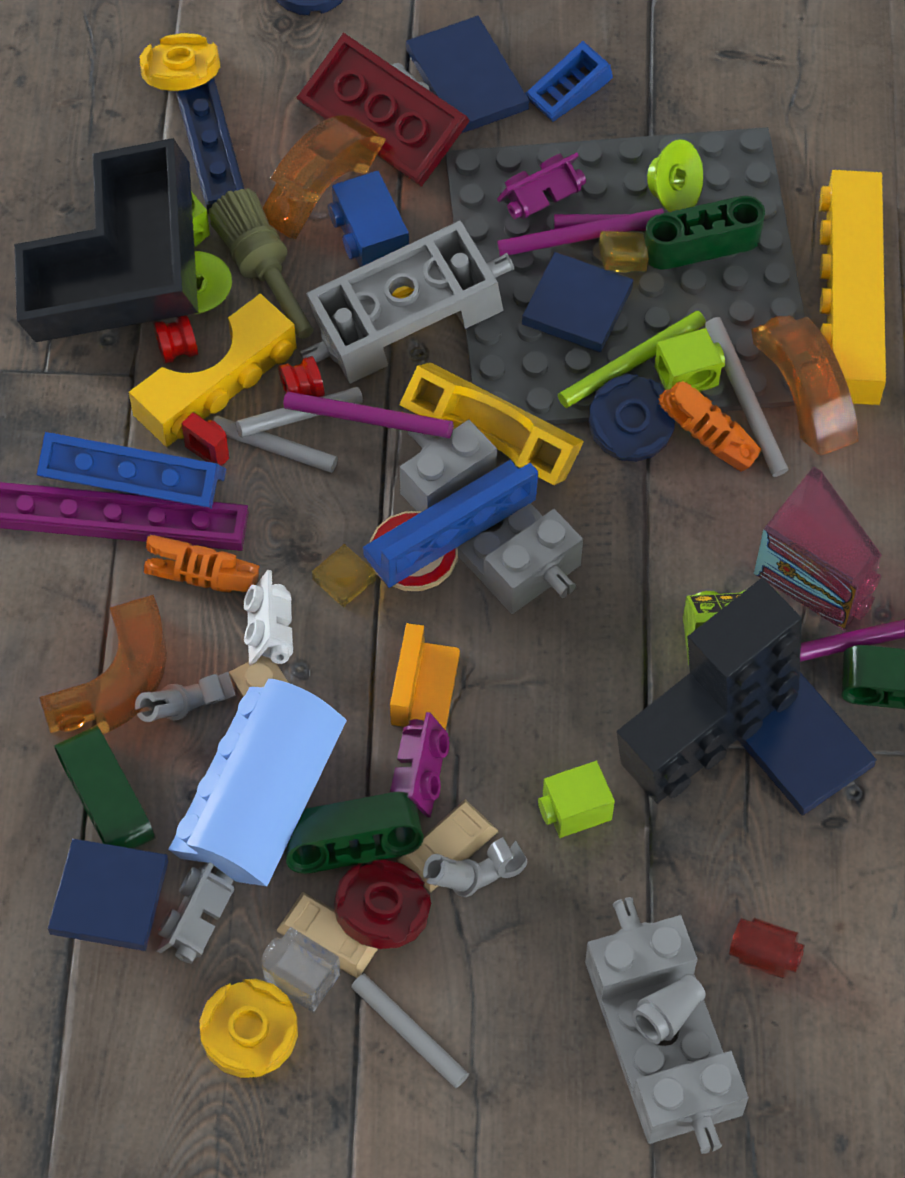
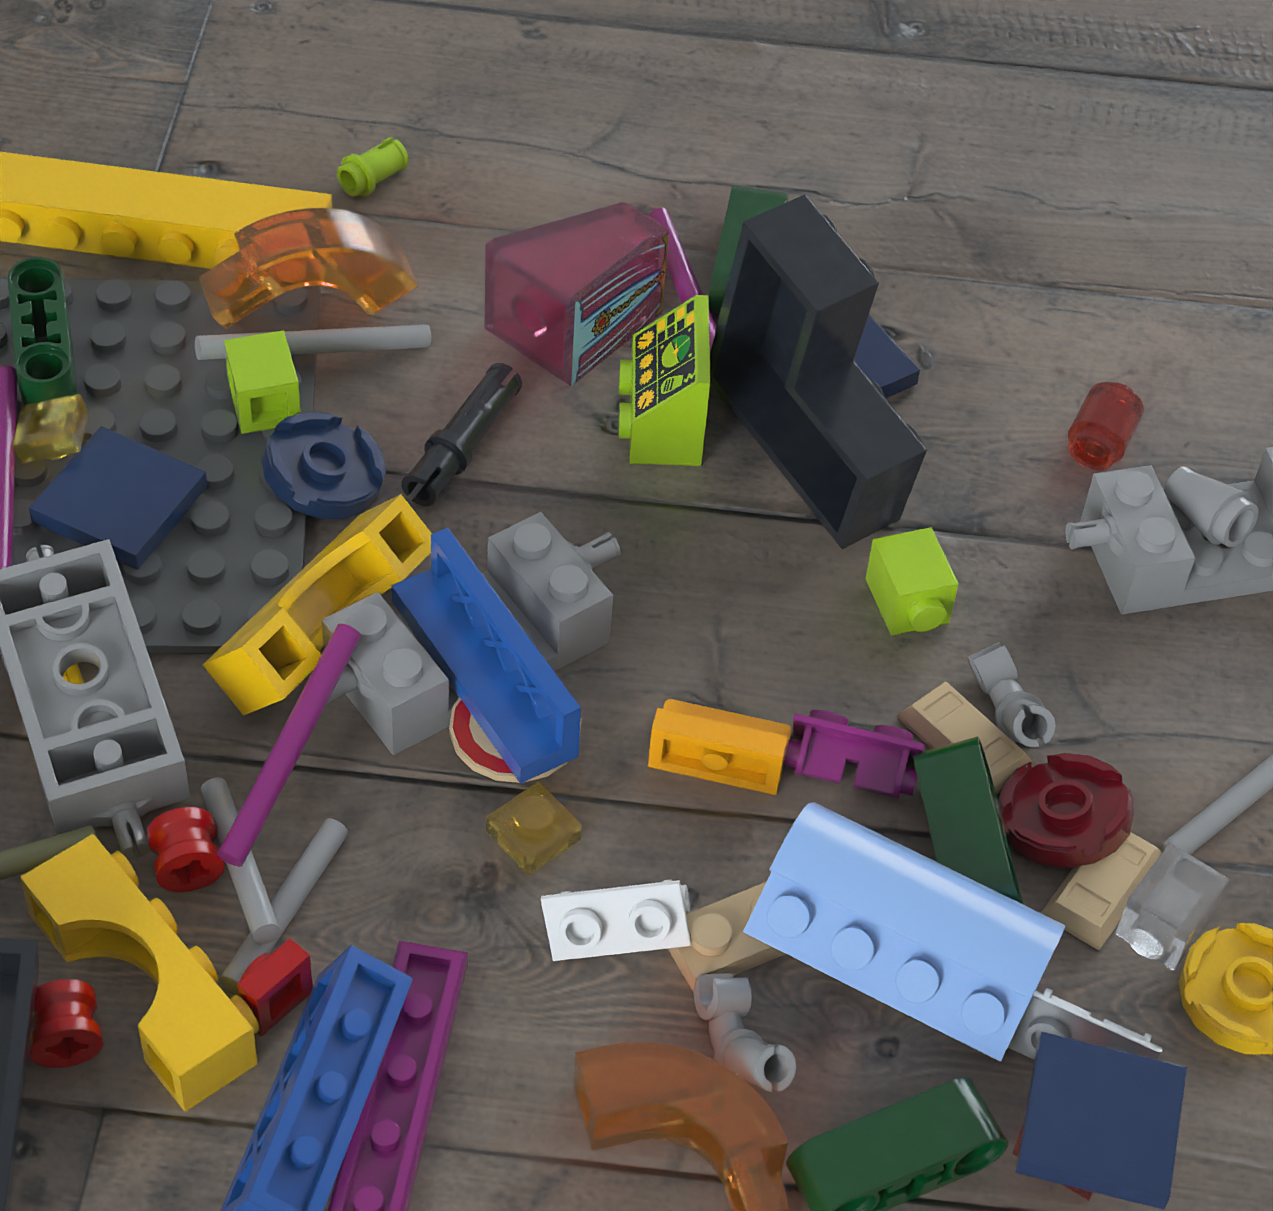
camera: 90 degrees left, 10 degrees down
(199, 565) = (507, 1009): orange hinge -> none
(628, 360) = (232, 451): lime bar -> none
(679, 500) = (450, 449): none -> black pin
(709, 425) = (358, 379): orange hinge -> none

